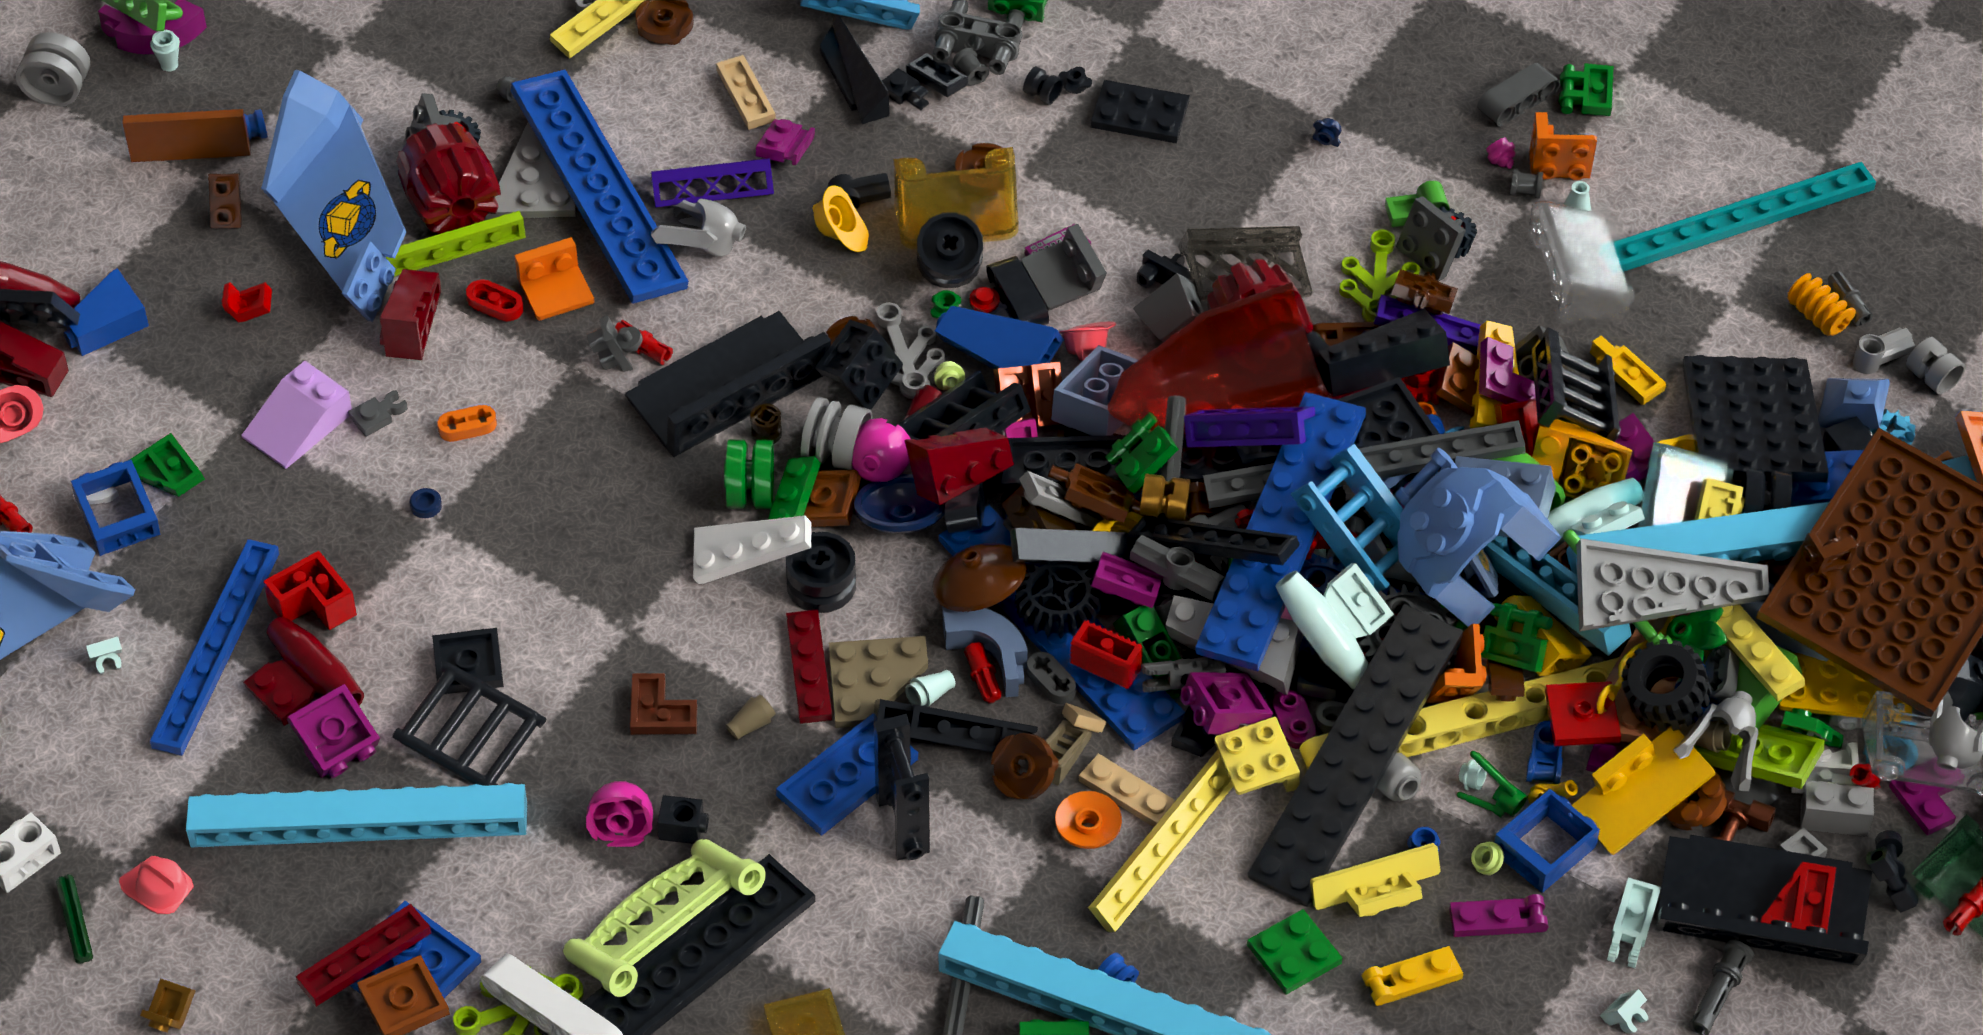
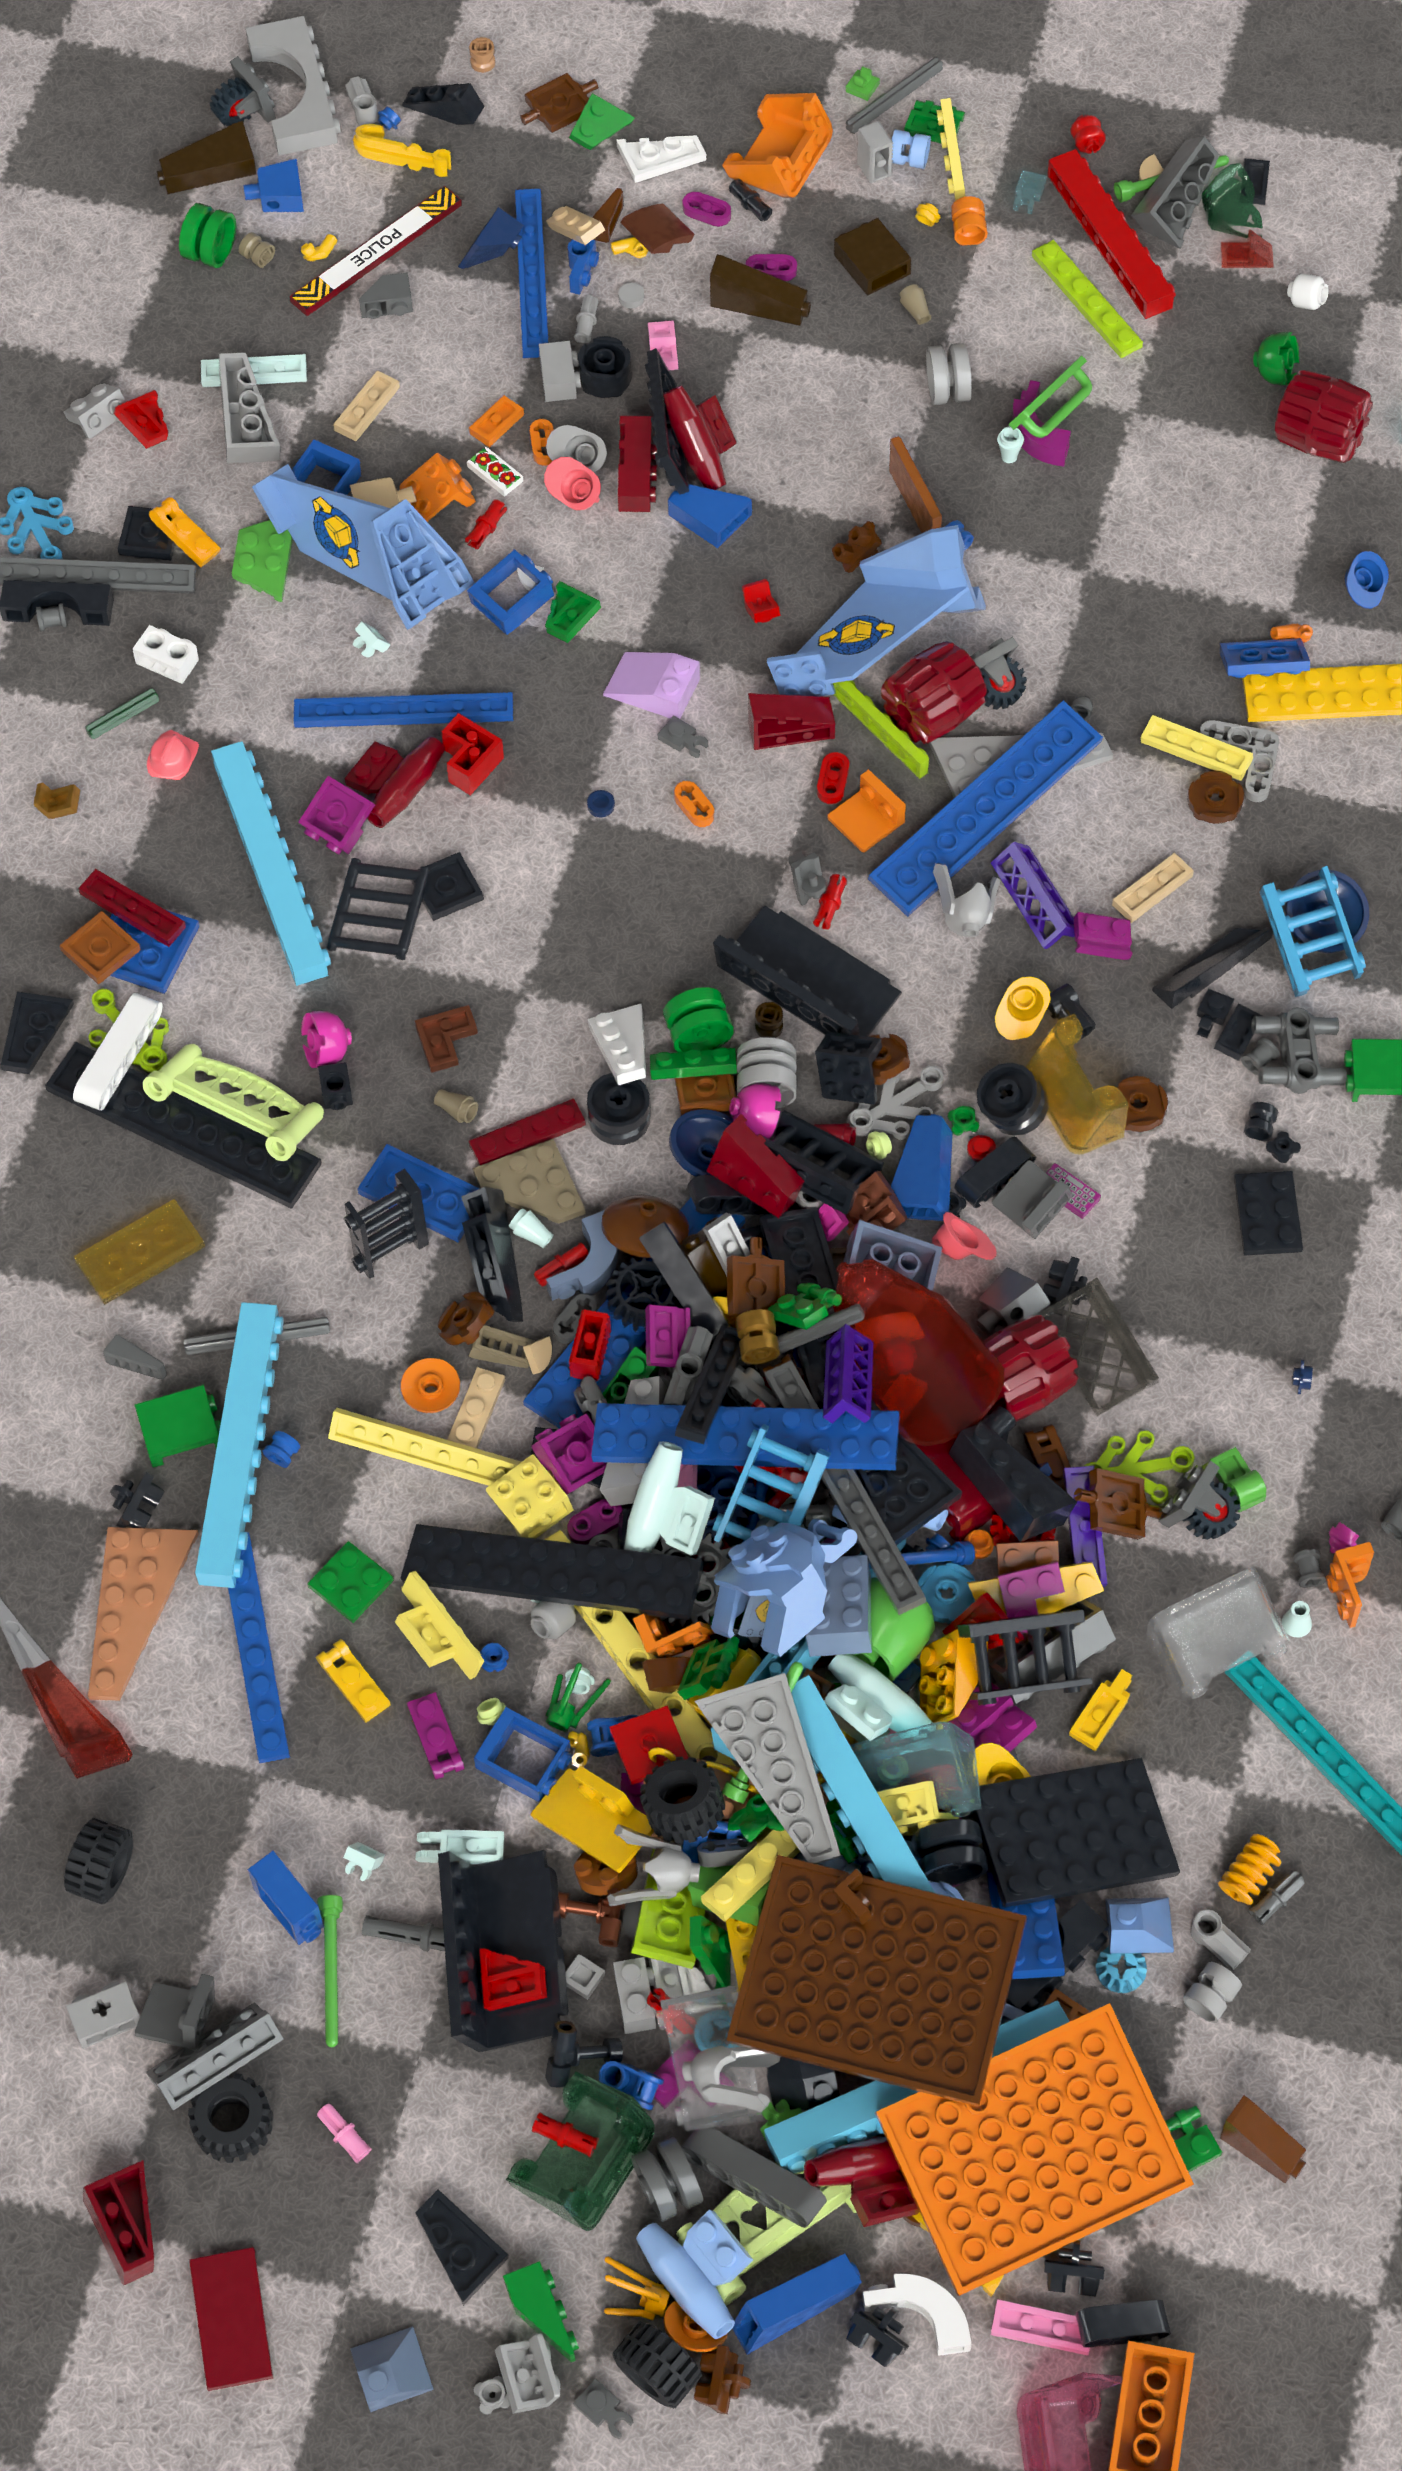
camera: 75 degrees right, 10 degrees up
(1932, 827) = (634, 2081): none -> blue piece

